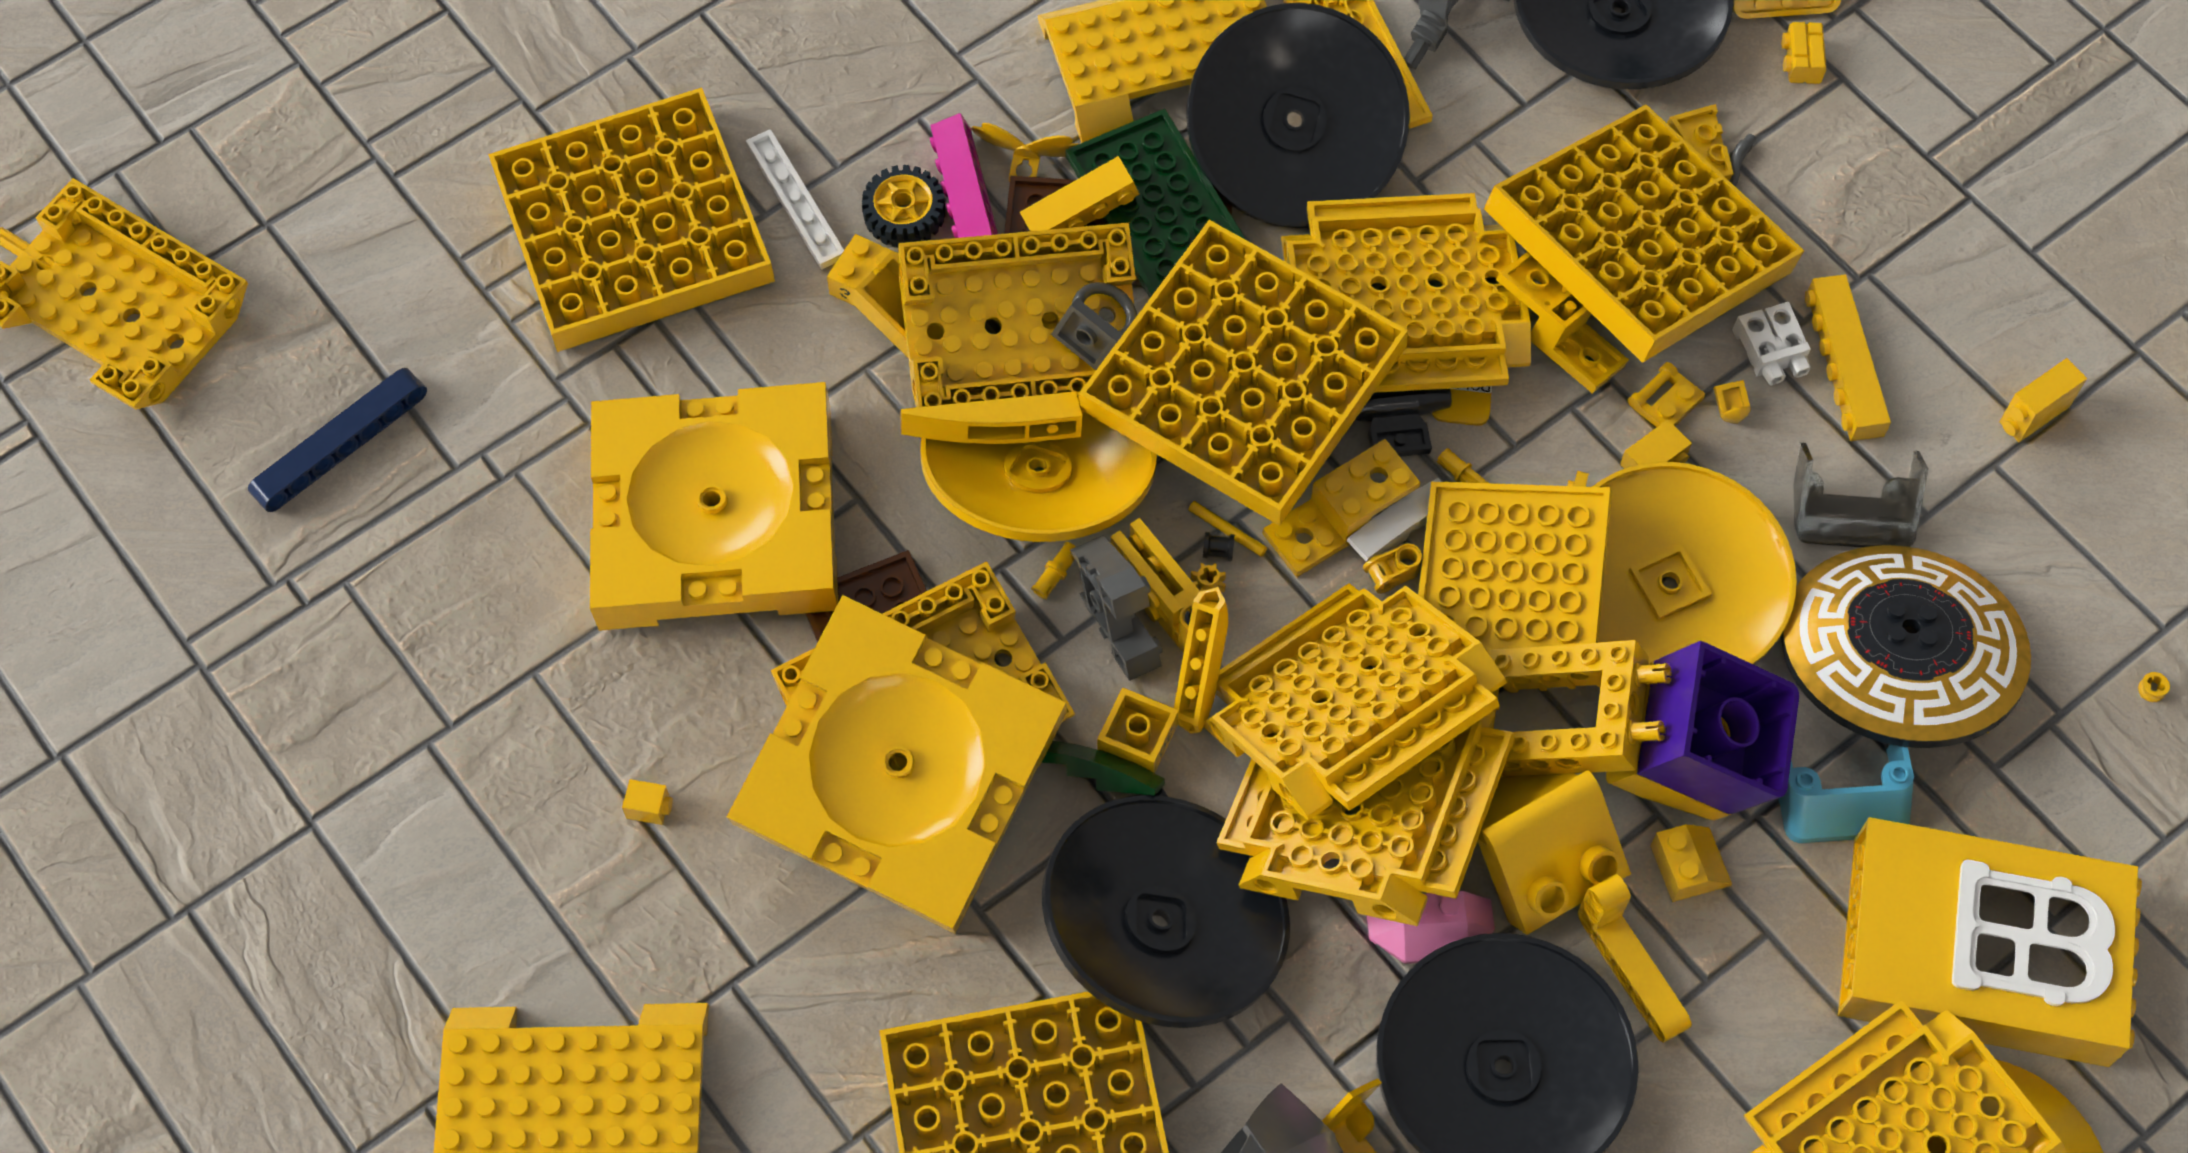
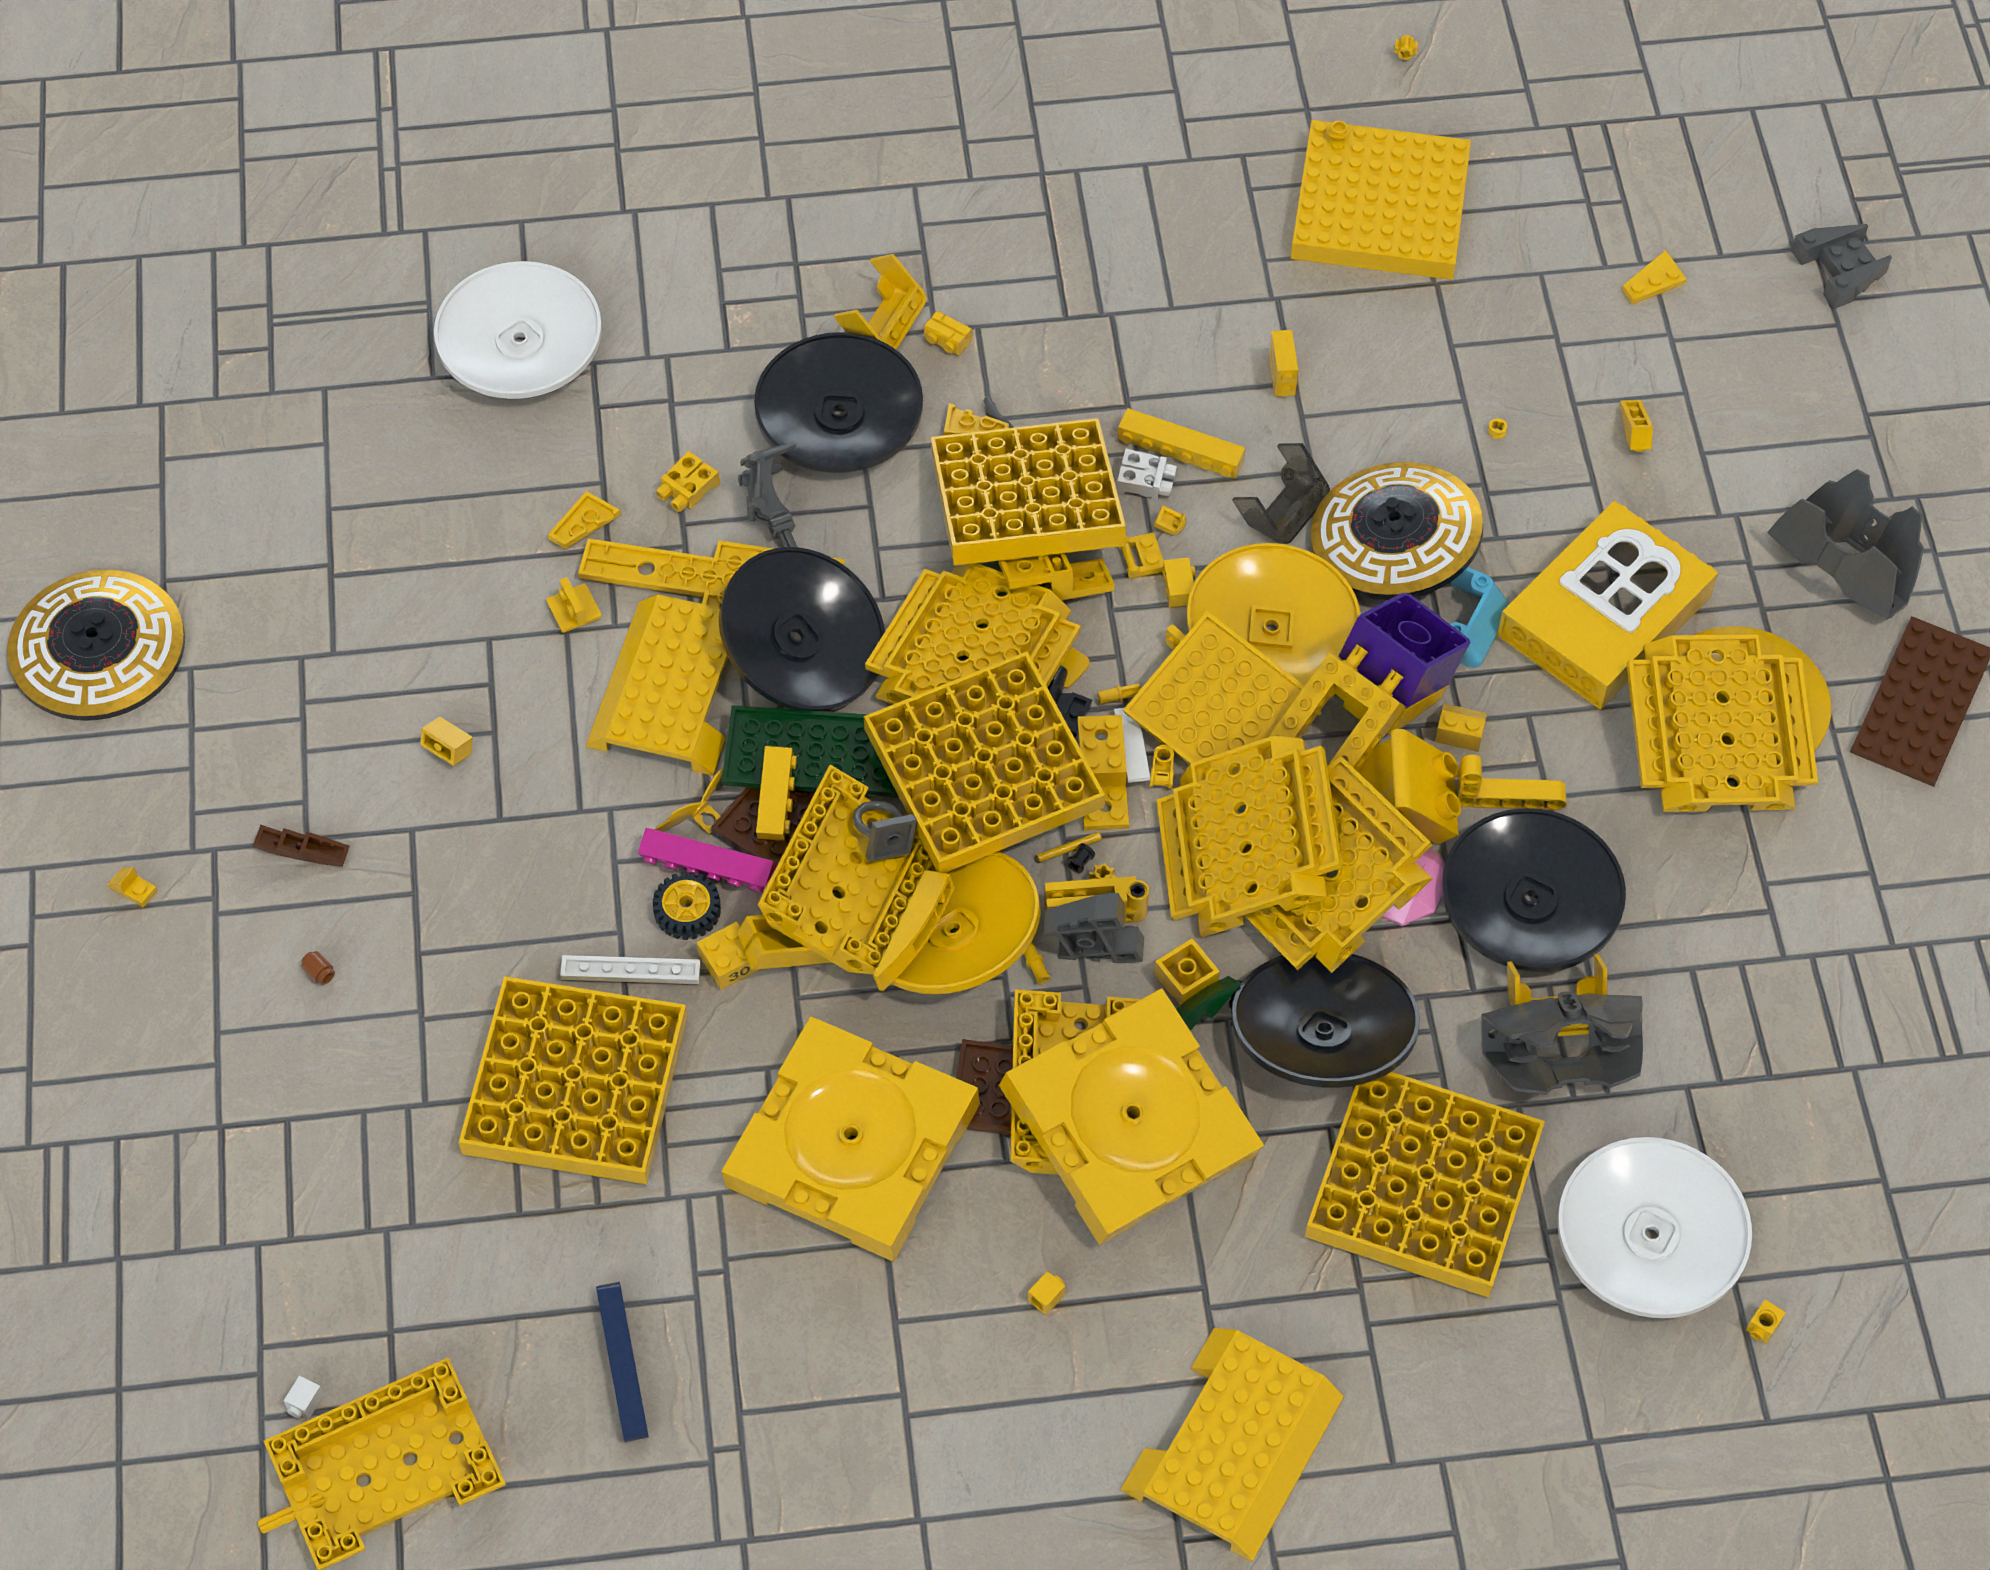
camera: 60 degrees left, 5 degrees down
(147, 189) = (303, 1398): none -> white brick
(1201, 660) = (1168, 901): yellow brick -> none

